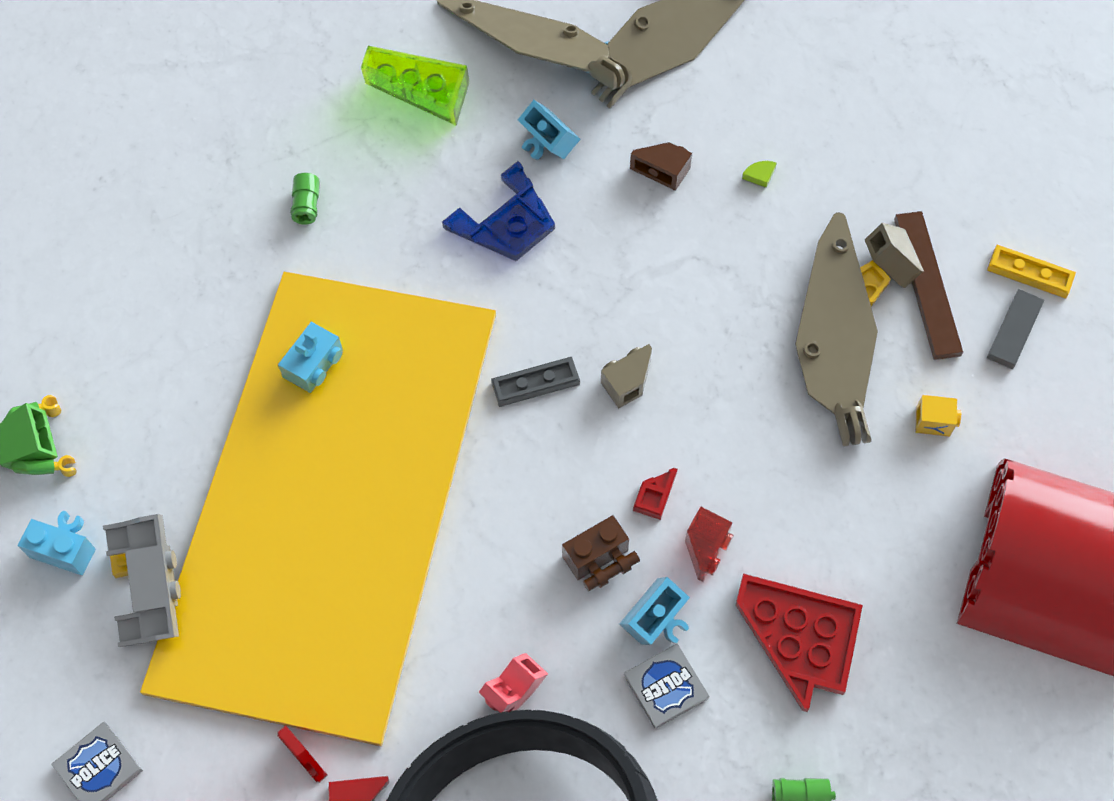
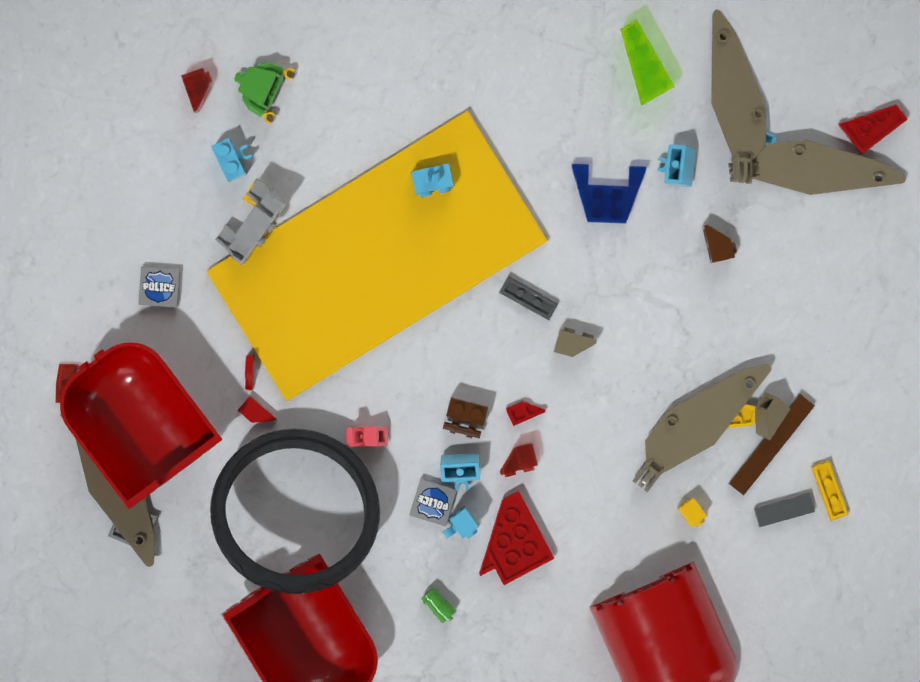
camera: 45 degrees right, 25 degrees up
(305, 196) = (521, 73): bright green piece -> none
(725, 666) = (463, 523): none -> medium azure brick
(760, 172) = (762, 299): lime tile -> none

